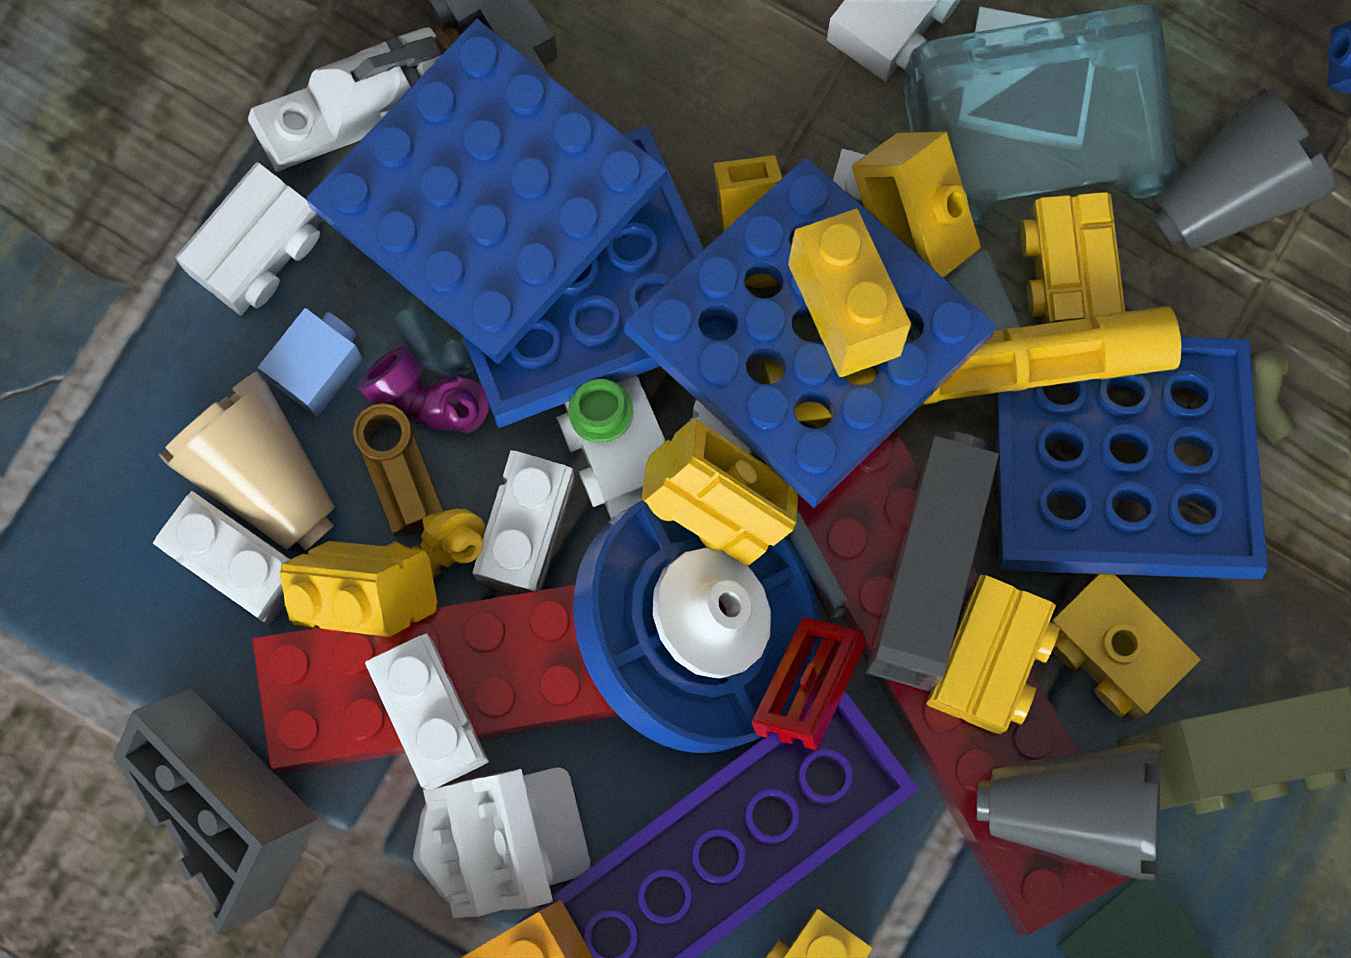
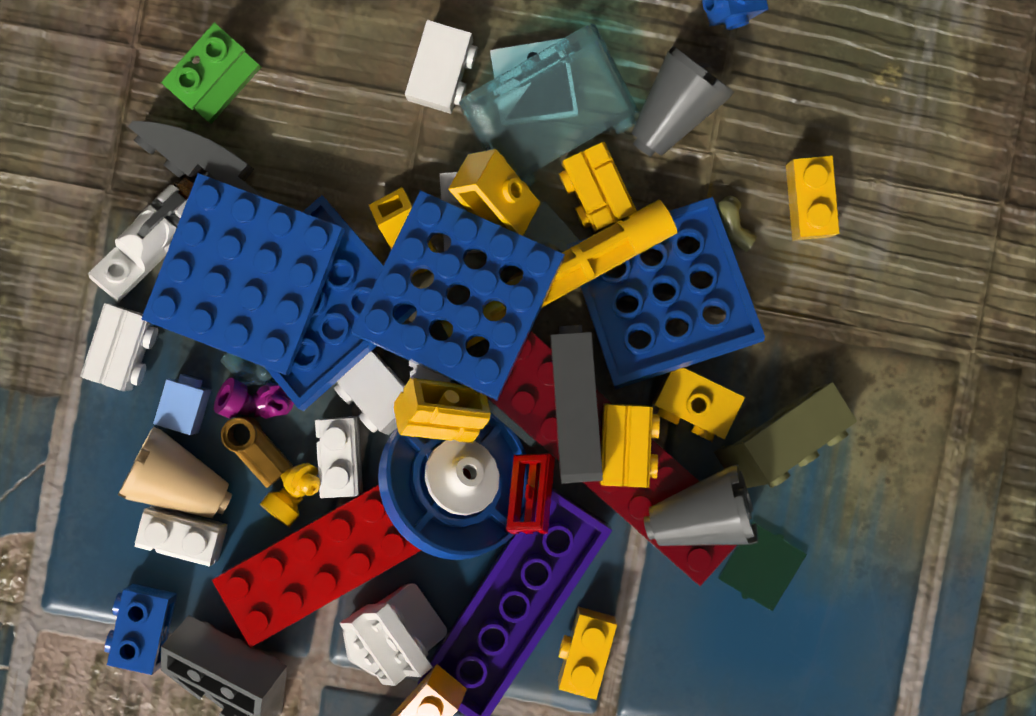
camera: 15 degrees left, 10 degrees up
(106, 679) = (140, 628): none -> blue brick
(359, 588) = (259, 532): yellow brick -> none
(426, 712) = (324, 592): white brick -> none
(600, 411) = (357, 381): bright green plate -> none
(848, 292) = (472, 273): yellow brick -> none

